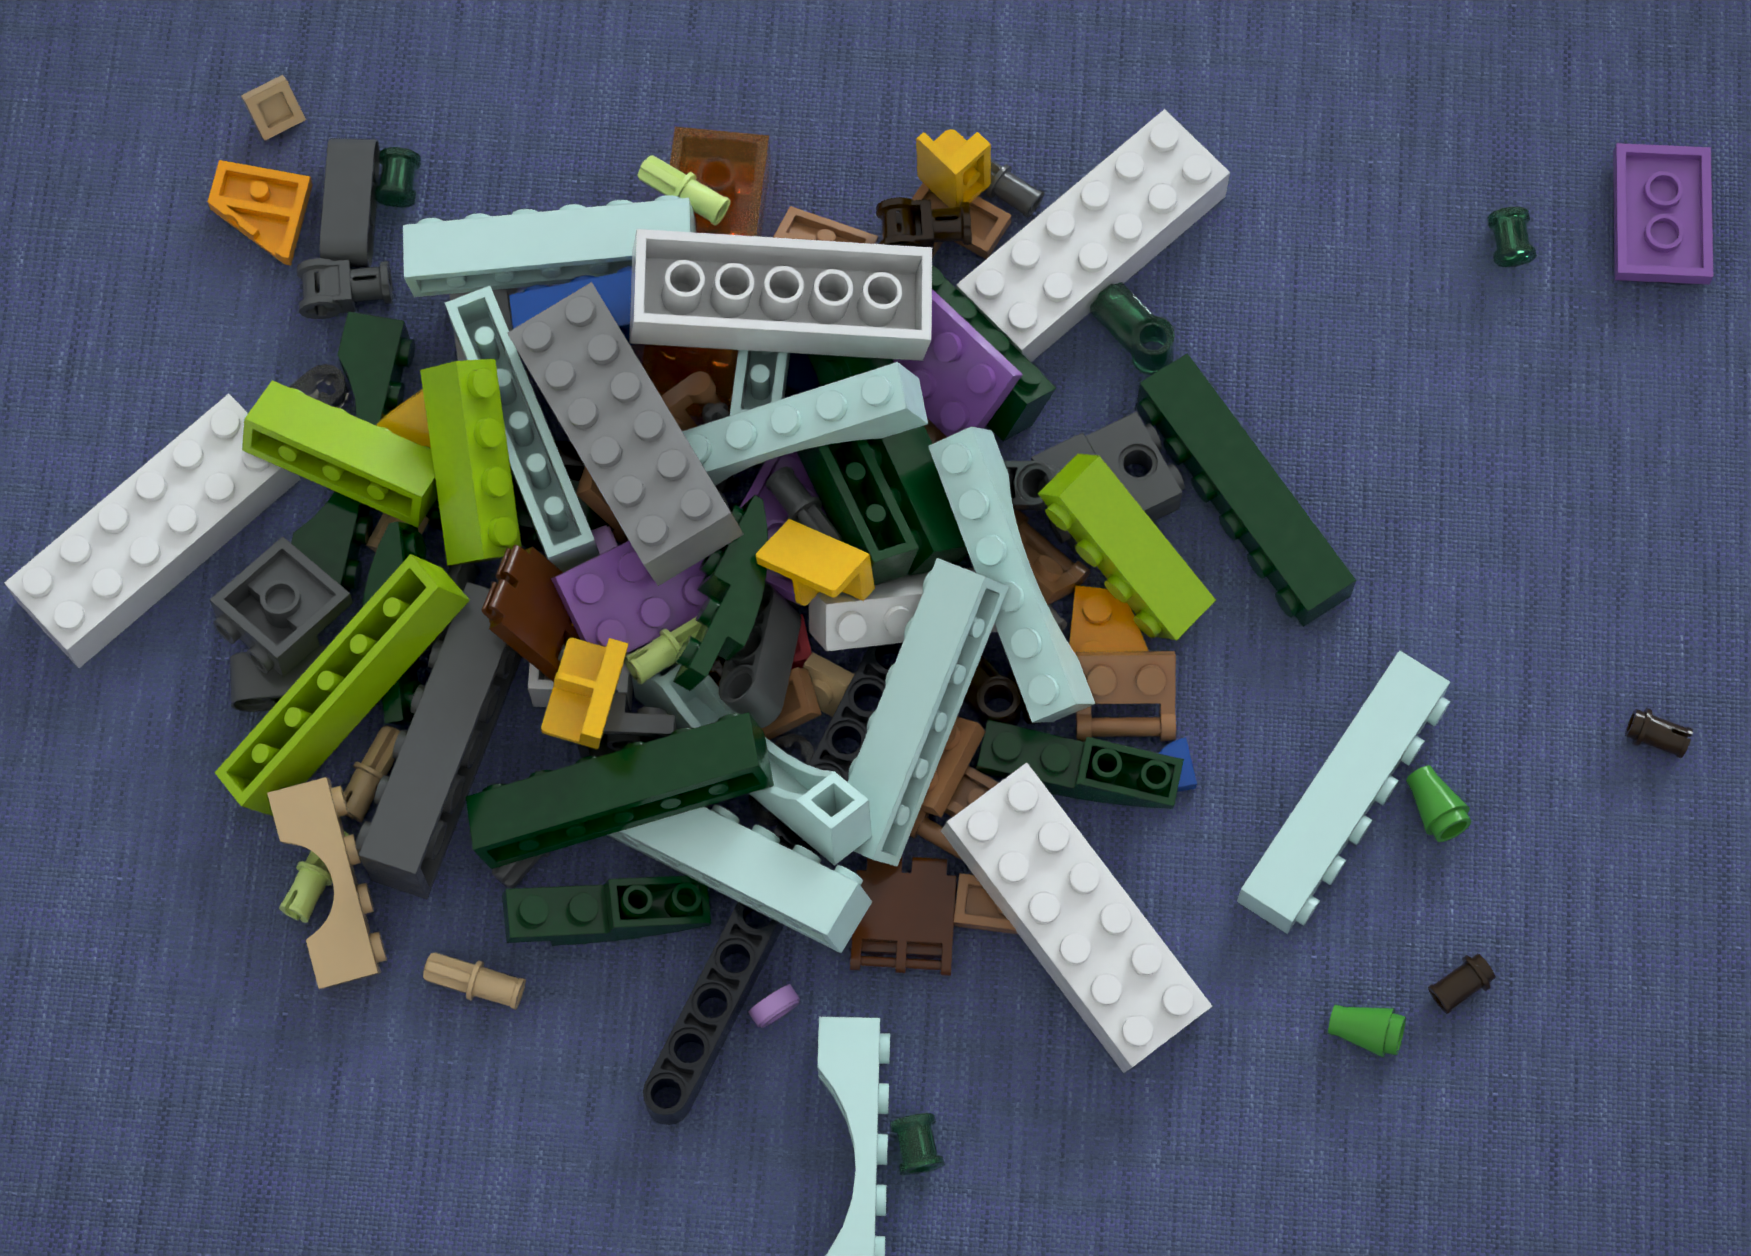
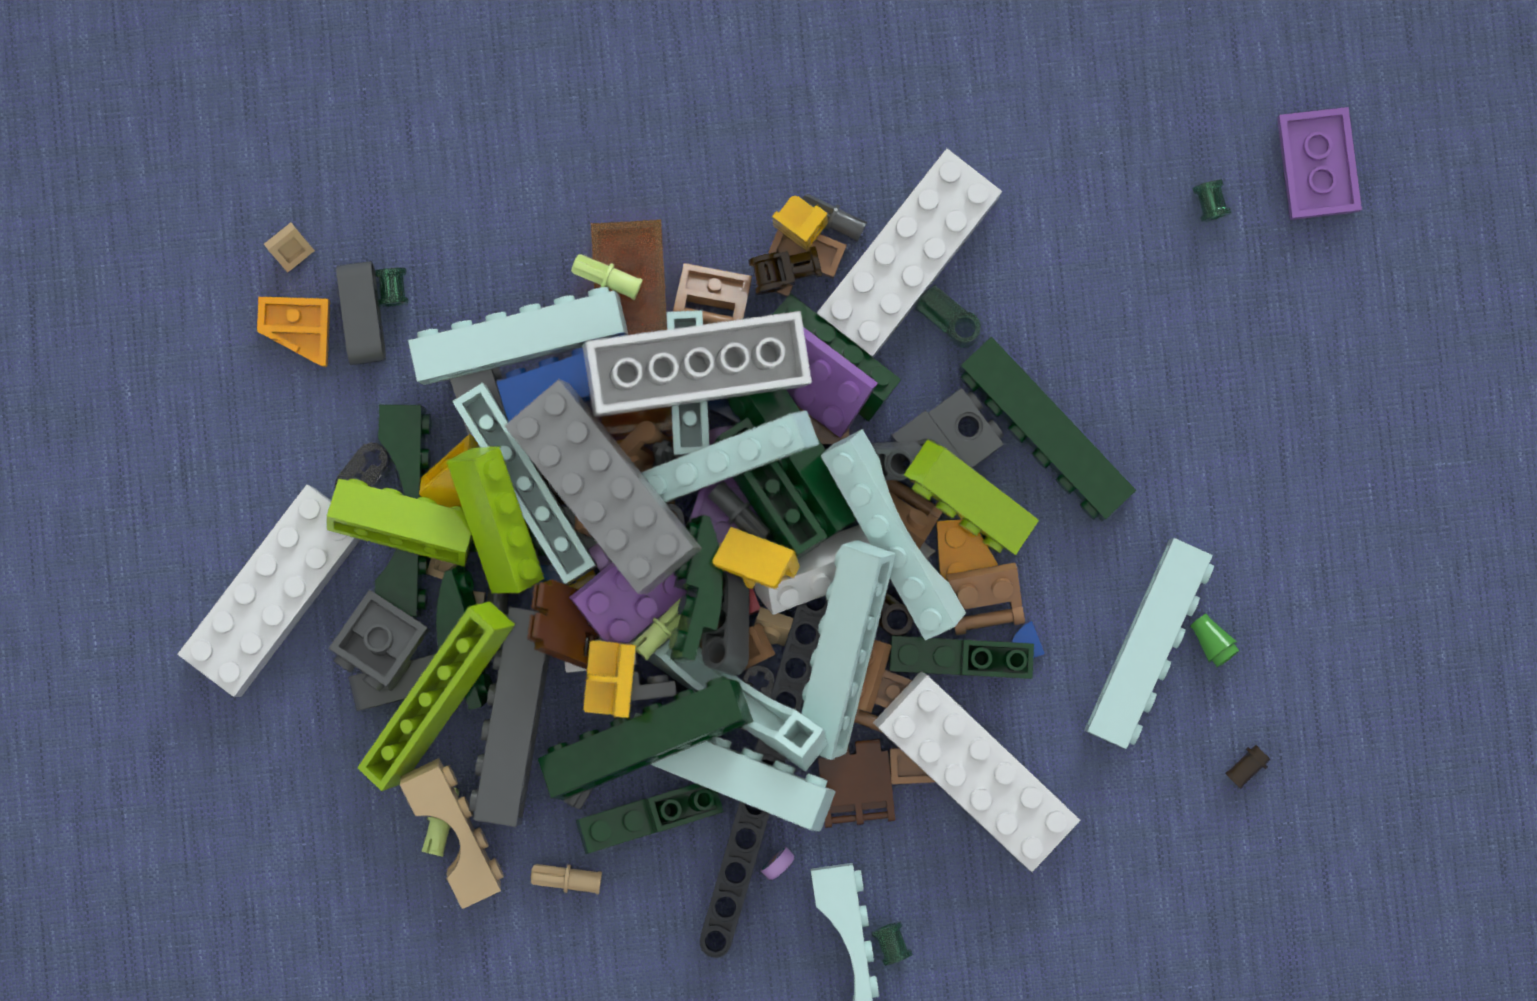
camera: 10 degrees left, 15 degrees up
(341, 286) = (368, 379): dark grey connector -> none
(369, 772) = (465, 741): tan axle -> none
(1370, 1028) = (1188, 809): bright green cone -> none
(1658, 732) = (1361, 562): dark brown pin -> none

